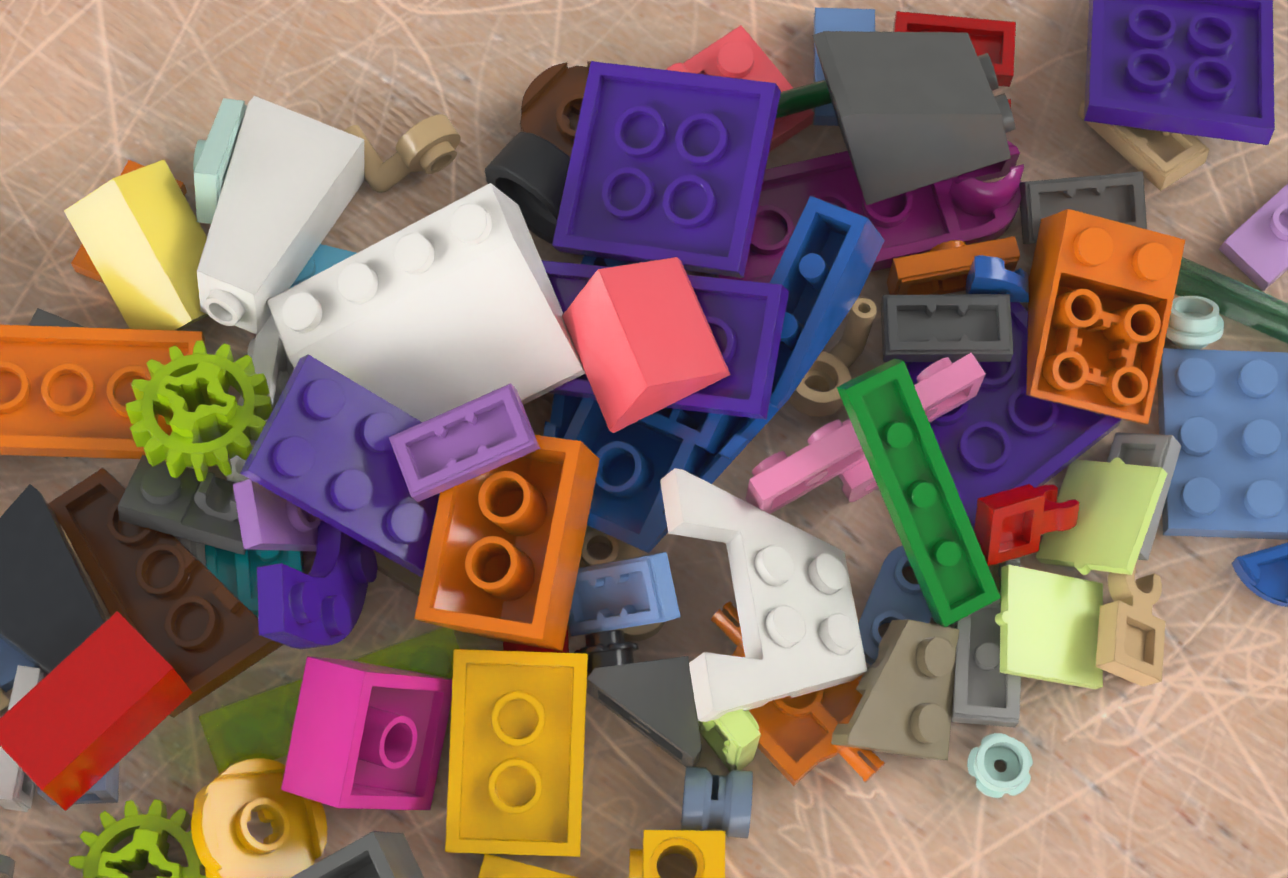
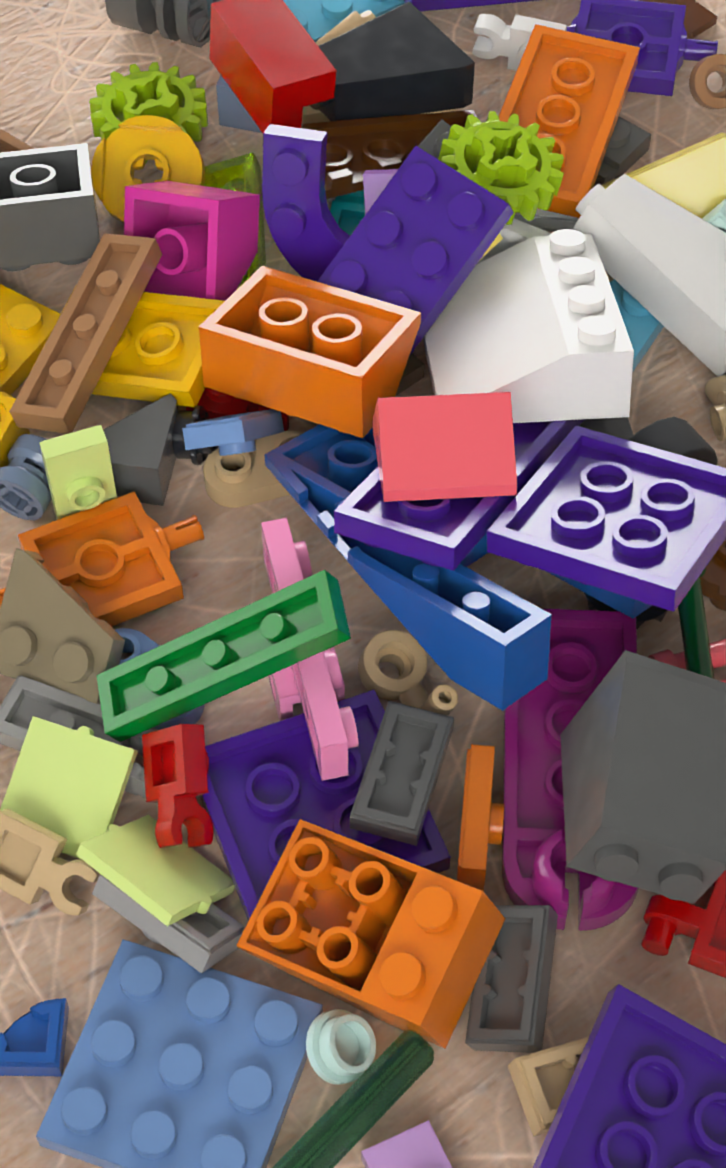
camera: 110 degrees right, 15 degrees down
(464, 443) = (391, 298): medium lavender plate -> none
(535, 790) = (86, 334): none -> medium nougat plate
(788, 596) = (161, 545): white wing -> none
(989, 276) = (440, 830): blue tile -> none

